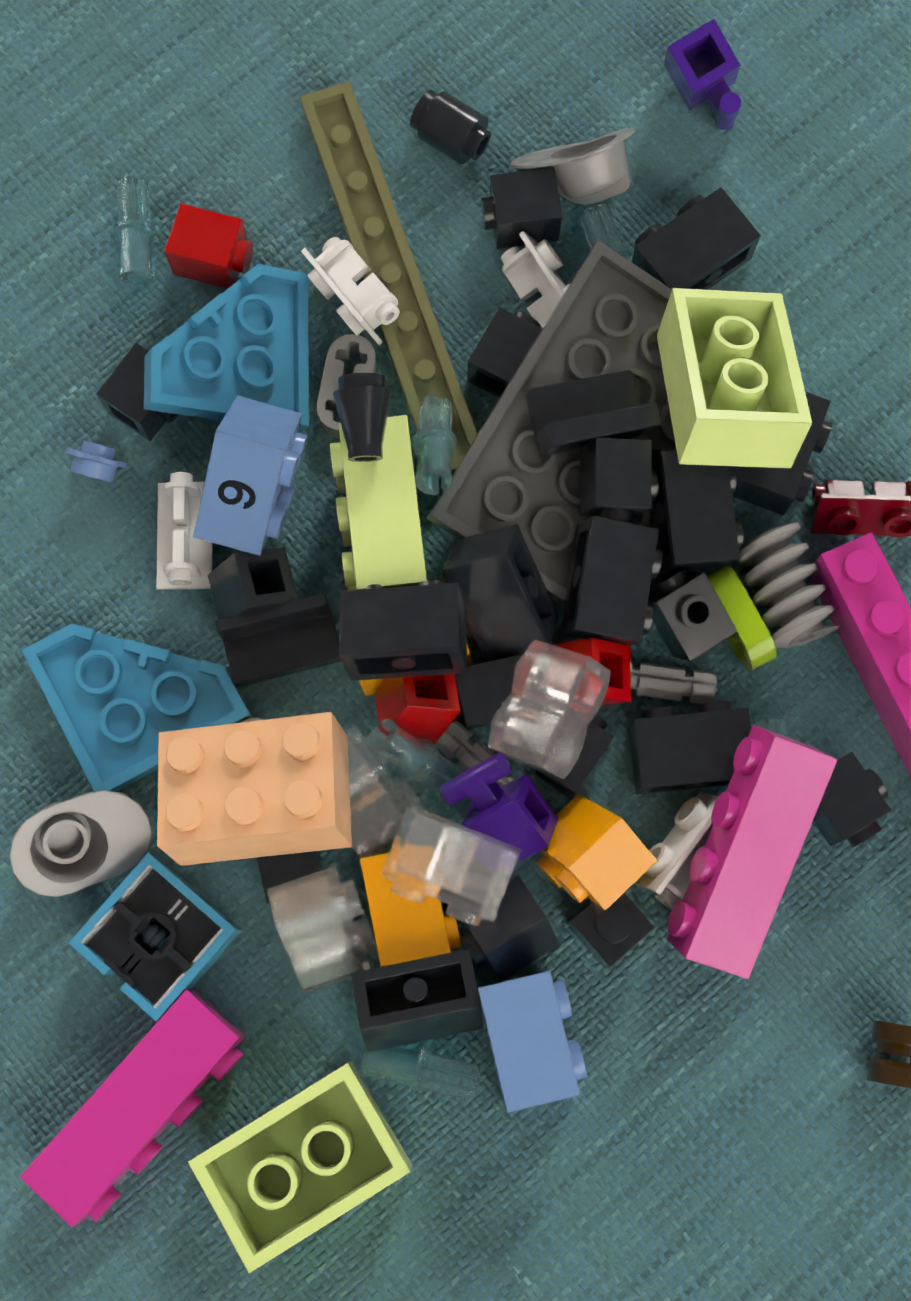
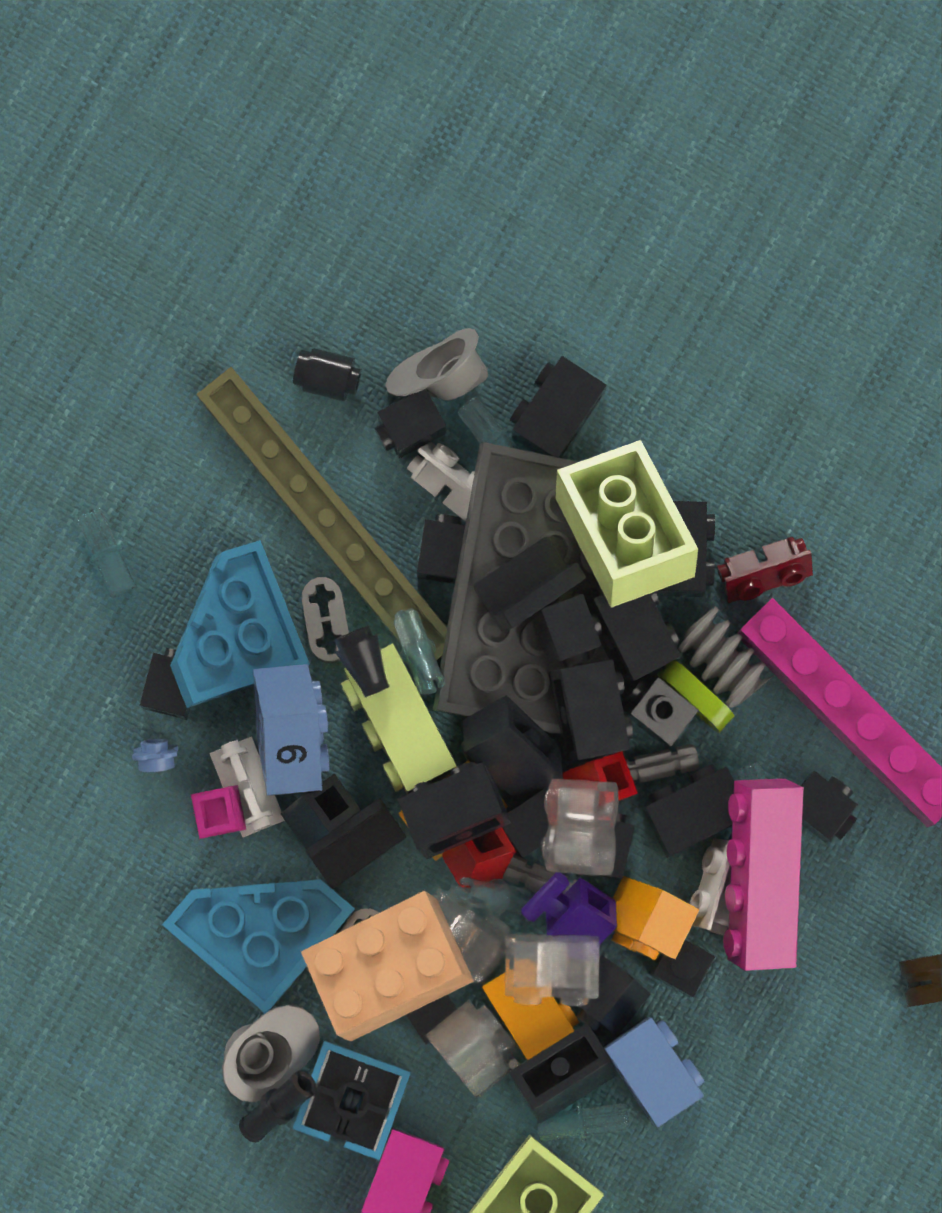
camera: 25 degrees left, 5 degrees up
(64, 910) = (277, 1106): none -> black pin
(140, 549) = (218, 811): none -> dark pink tile
(208, 246) = (174, 547): red brick -> none
(364, 304) = (286, 534): white hinge -> none
(703, 70) = (514, 257): dark purple brick -> none

